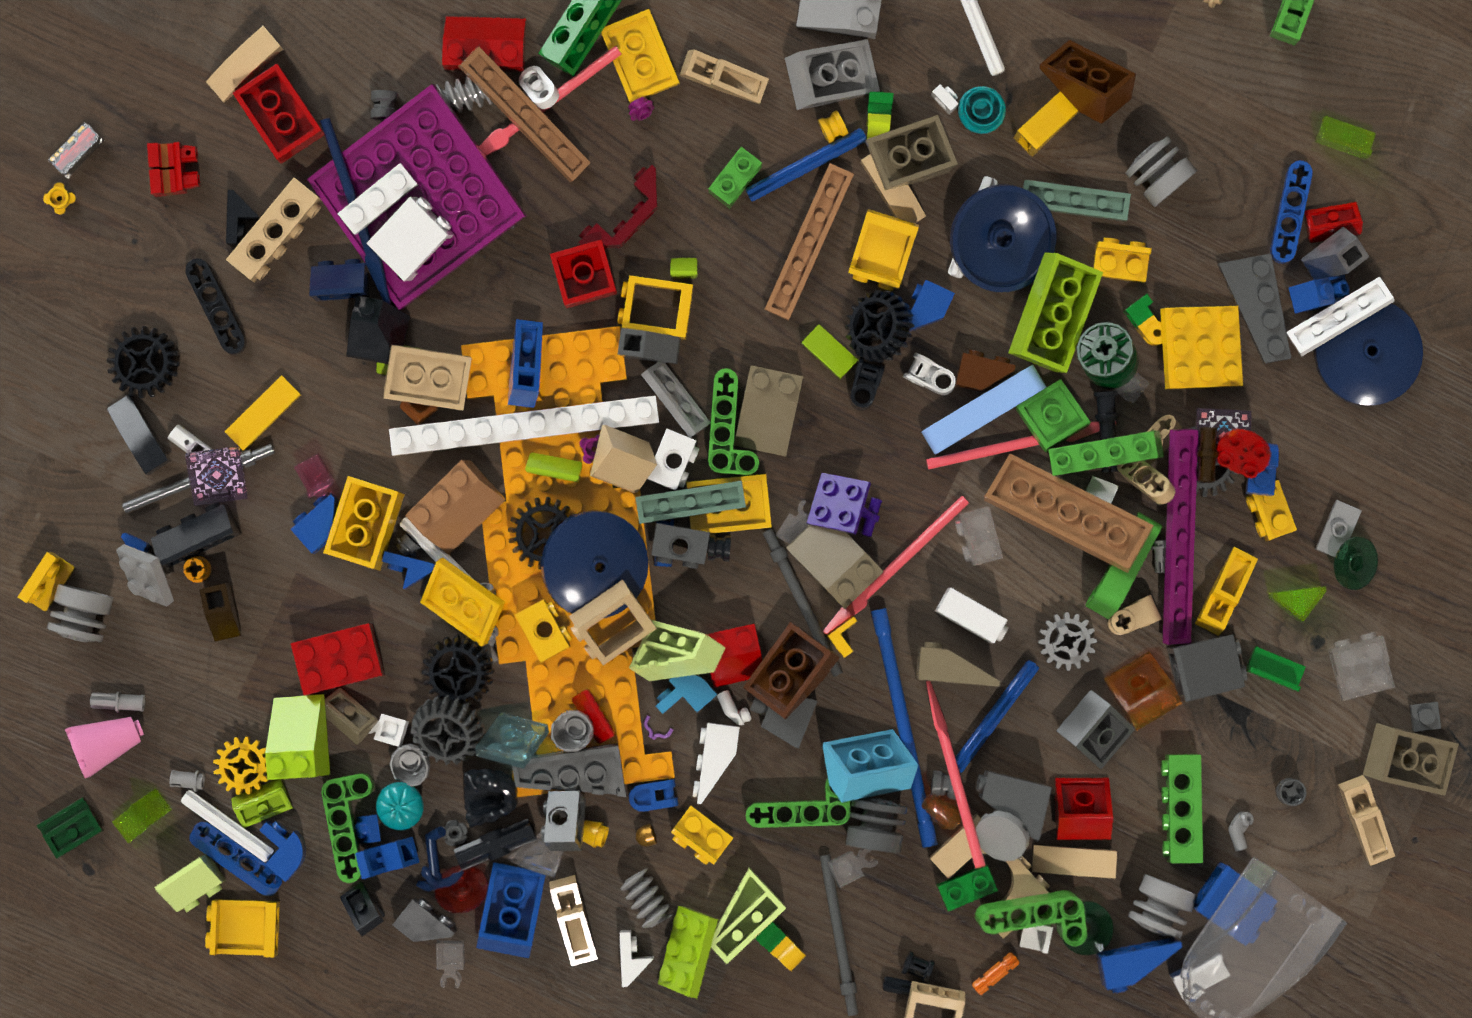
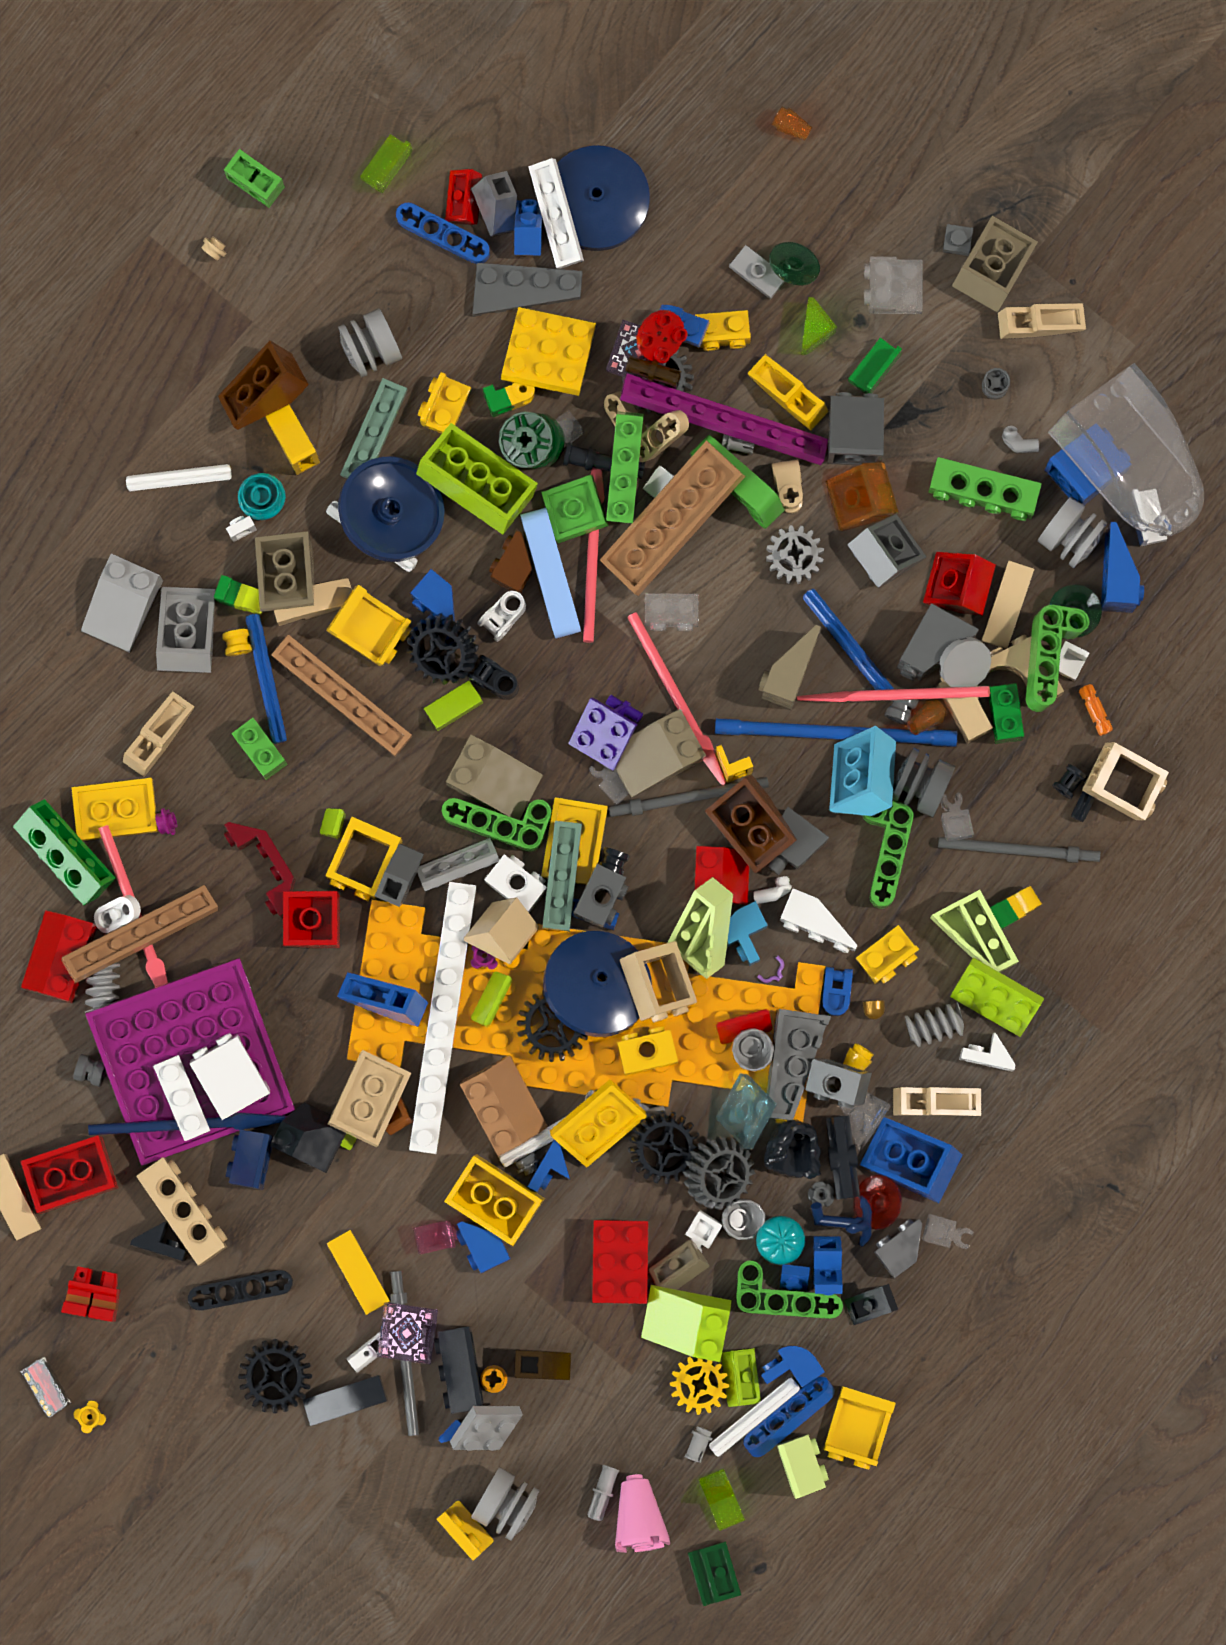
camera: 75 degrees left, 5 degrees down
(972, 616) = (746, 636): white window -> none

